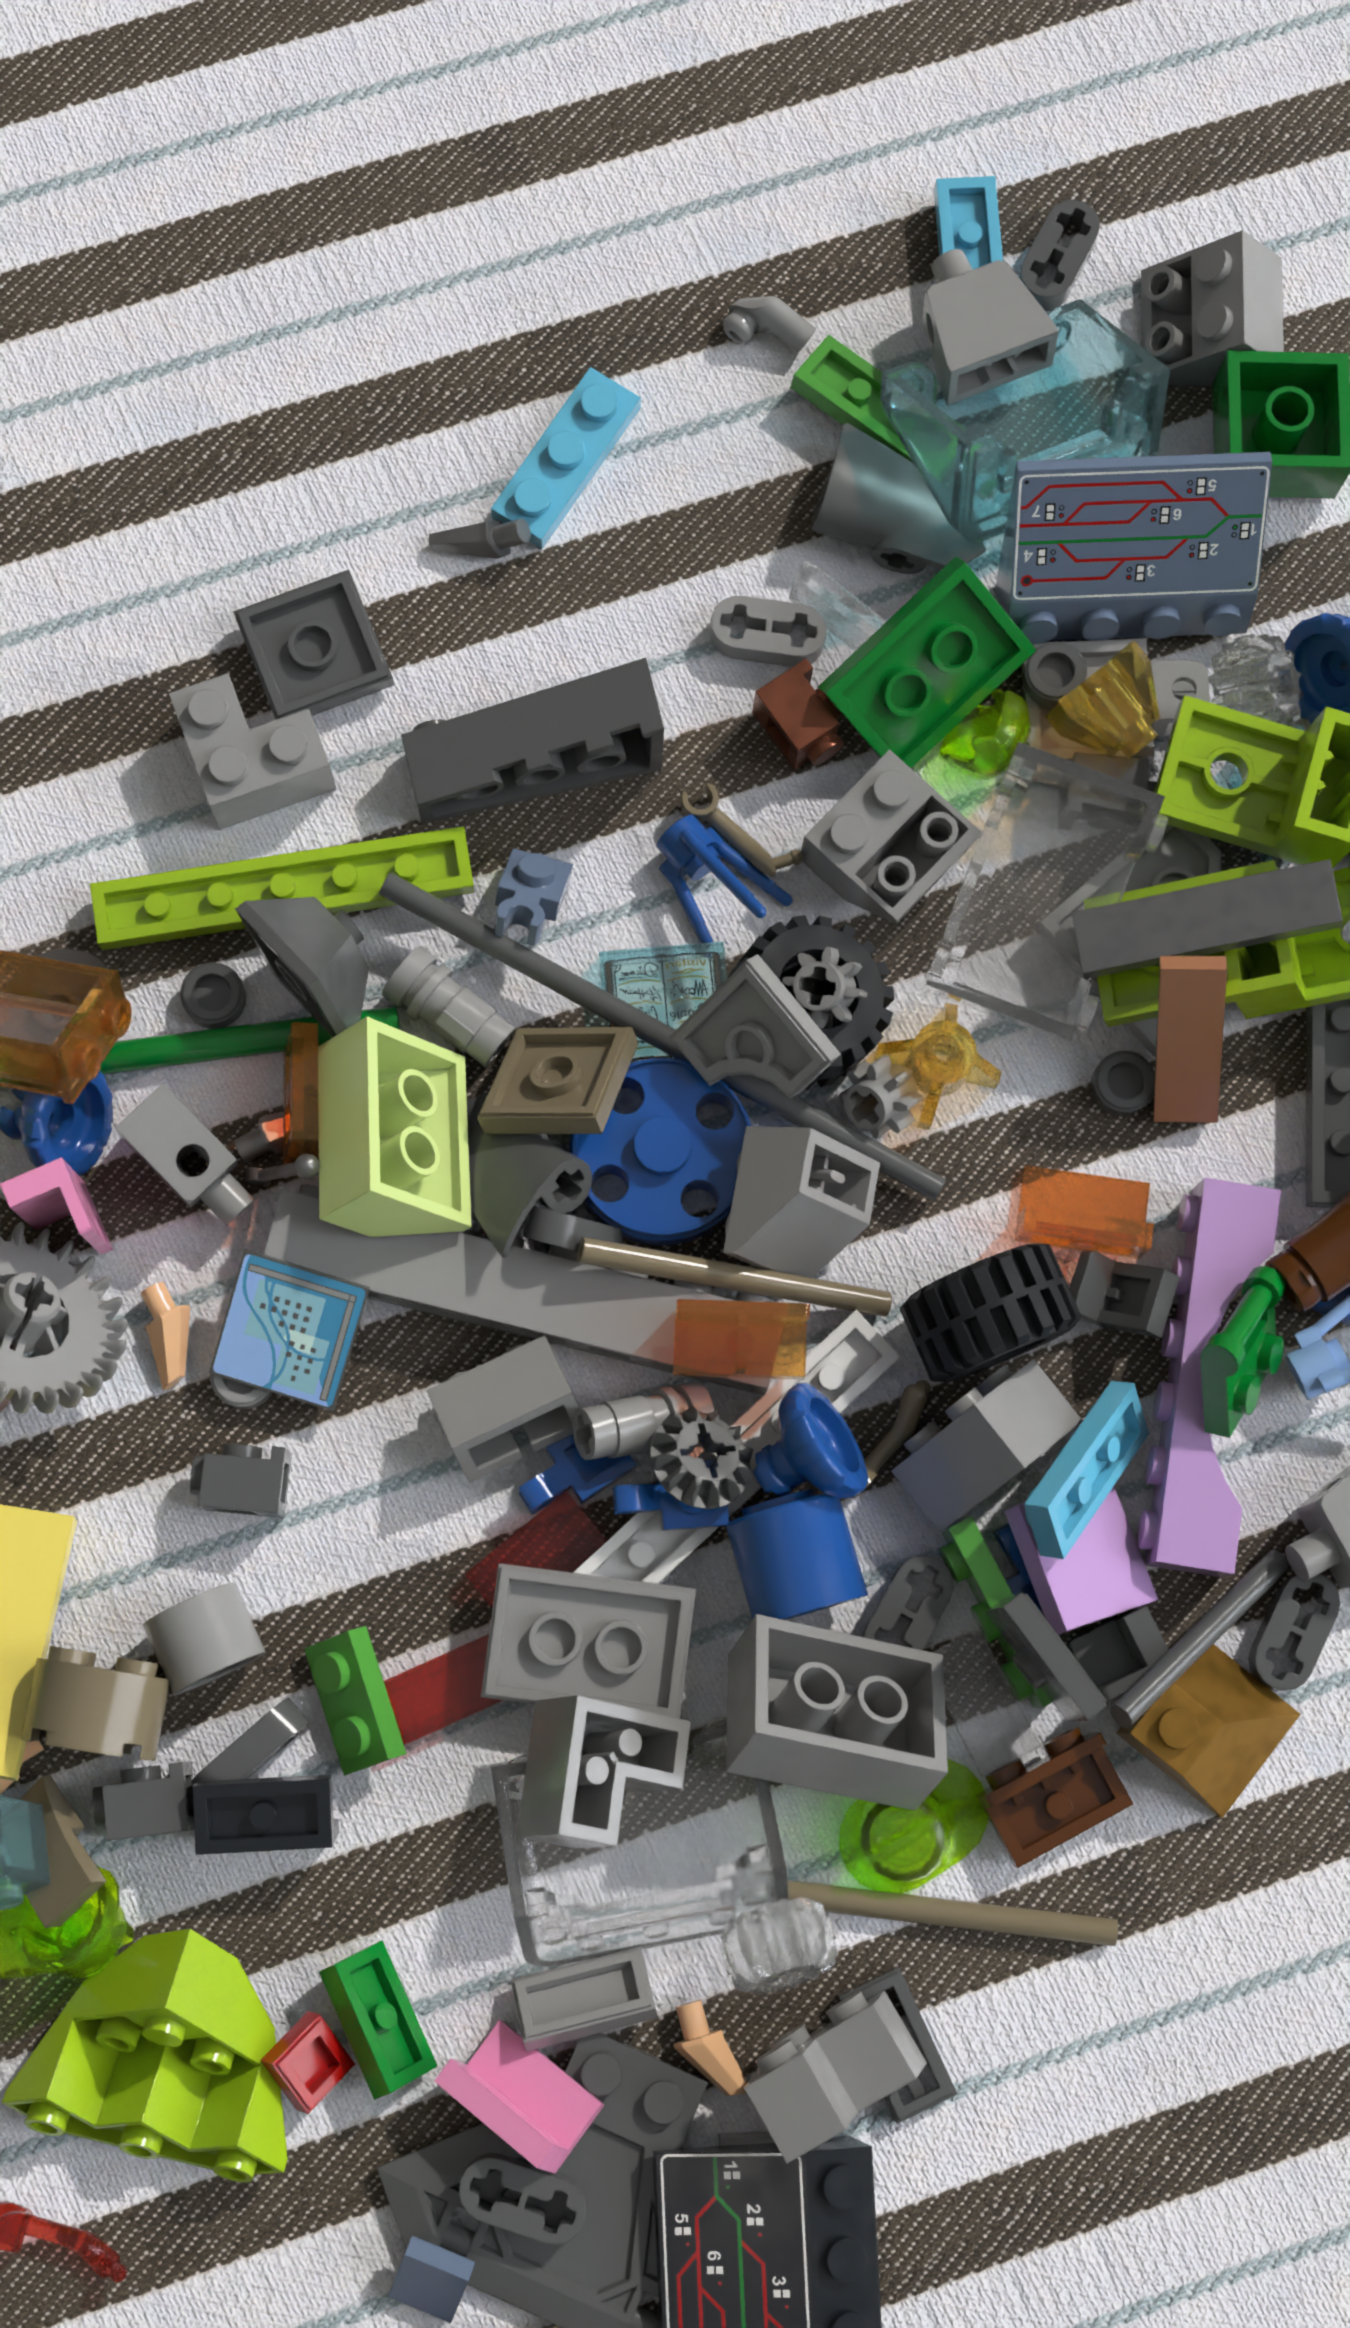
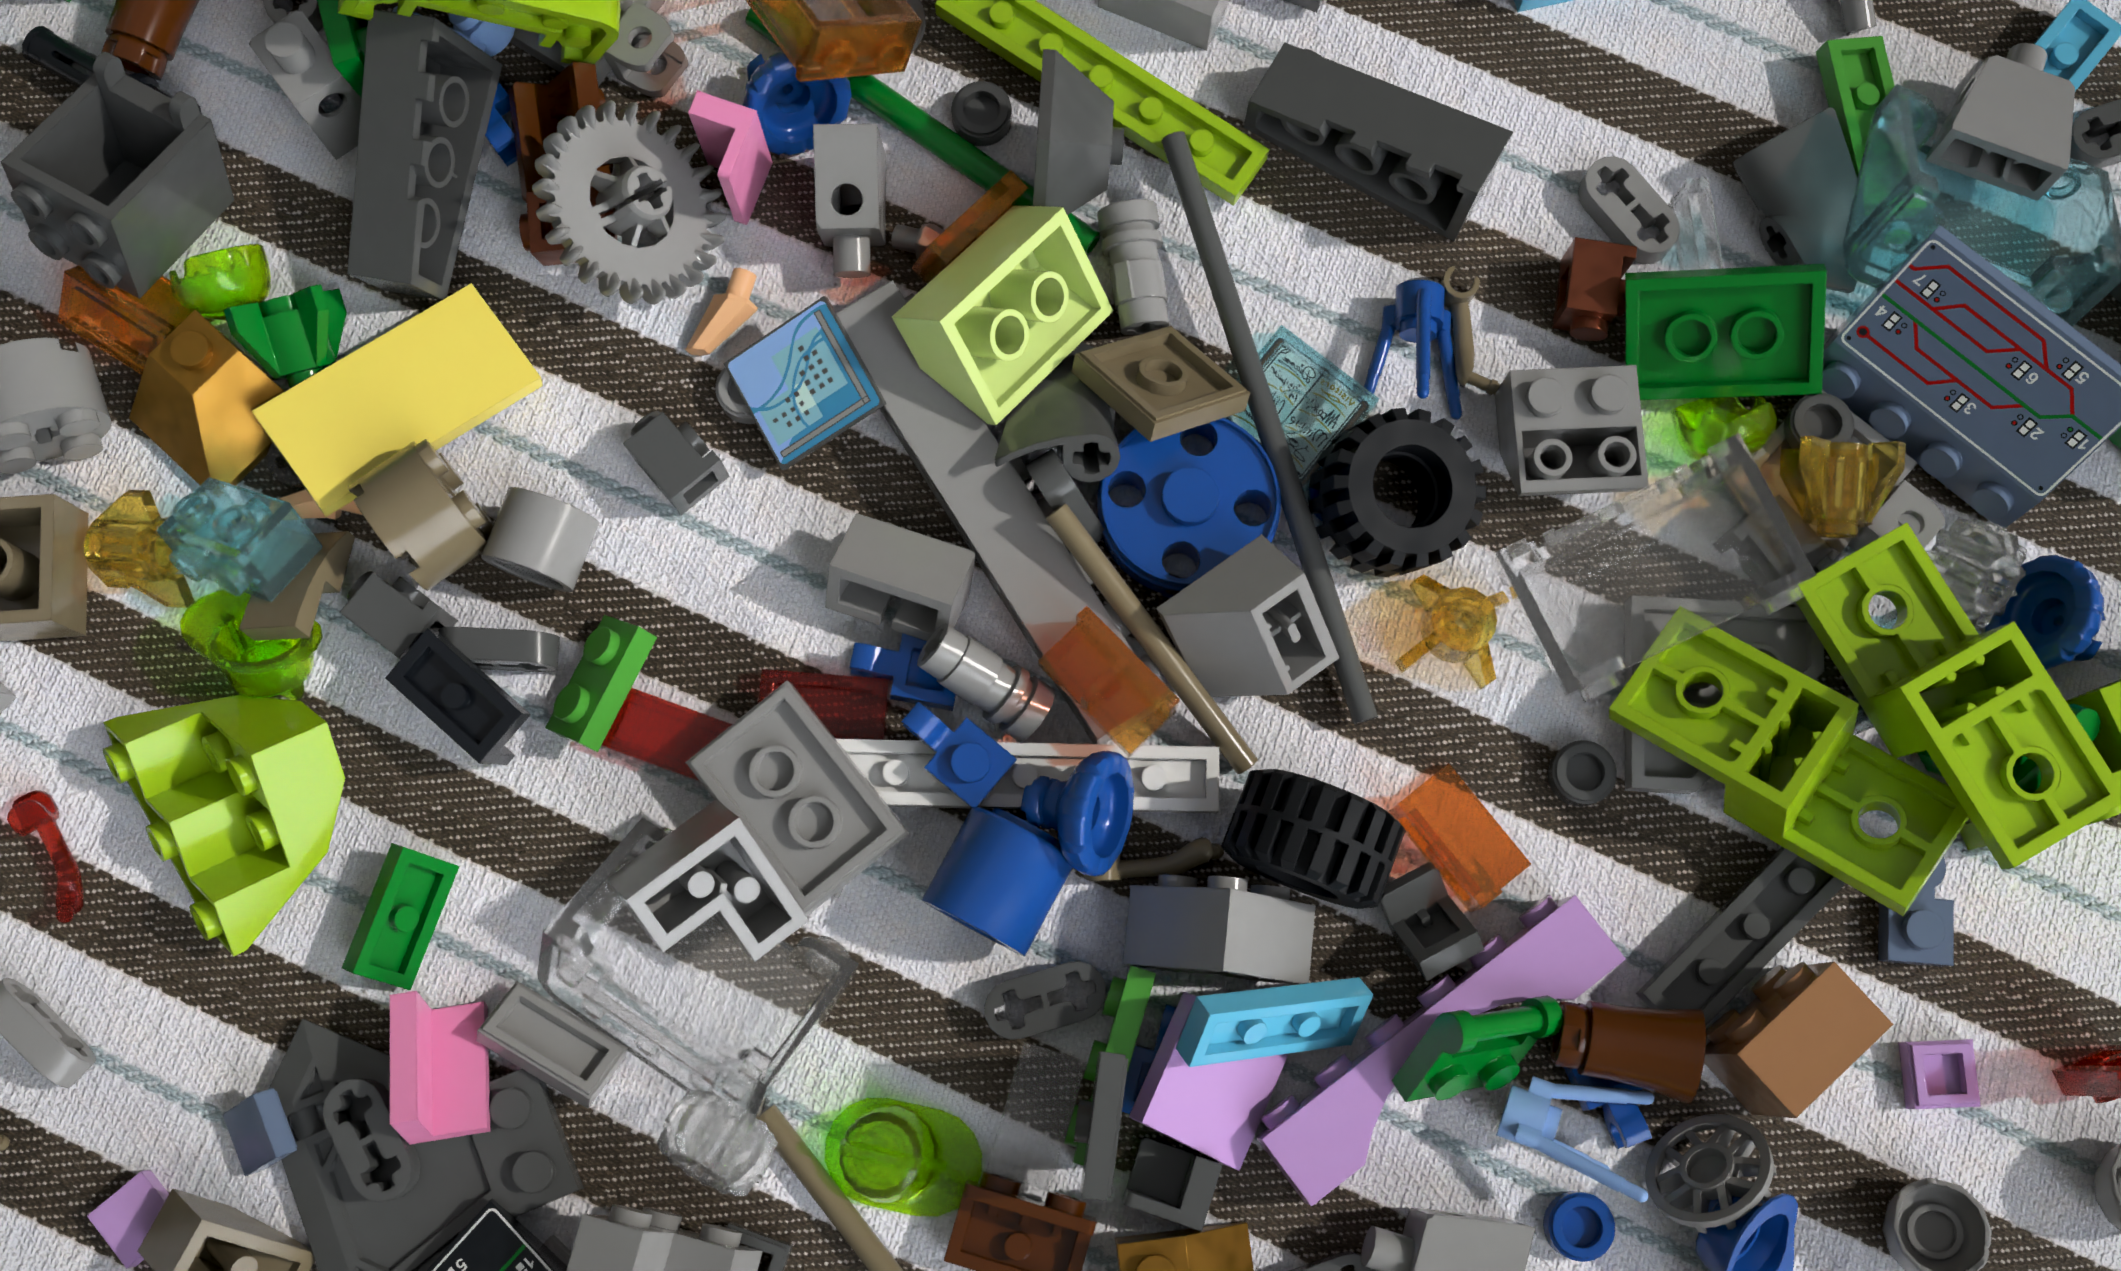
camera: 50 degrees right, 0 degrees up
(305, 1166) = (919, 274): flat silver hinge -> none
(307, 2062) = (325, 898): red tile -> none
(530, 892) = (1274, 235): sand blue plate -> none
(688, 1477) = (972, 742): dark grey gear -> none
(708, 2050) = (602, 1166): light nougat bar -> none
(756, 1031) = (1335, 471): light grey tile -> none
(827, 969) = (1409, 469): light grey gear -> none
(836, 1713) = (916, 1016): light grey brick -> none
(880, 1096) = (1386, 612): light grey gear -> none
(1189, 1038) = (1663, 778): nougat tile -> none
(1199, 1639) = (1237, 1227): dark grey bar -> none
(1208, 919) = (1763, 701): flat silver tile -> none

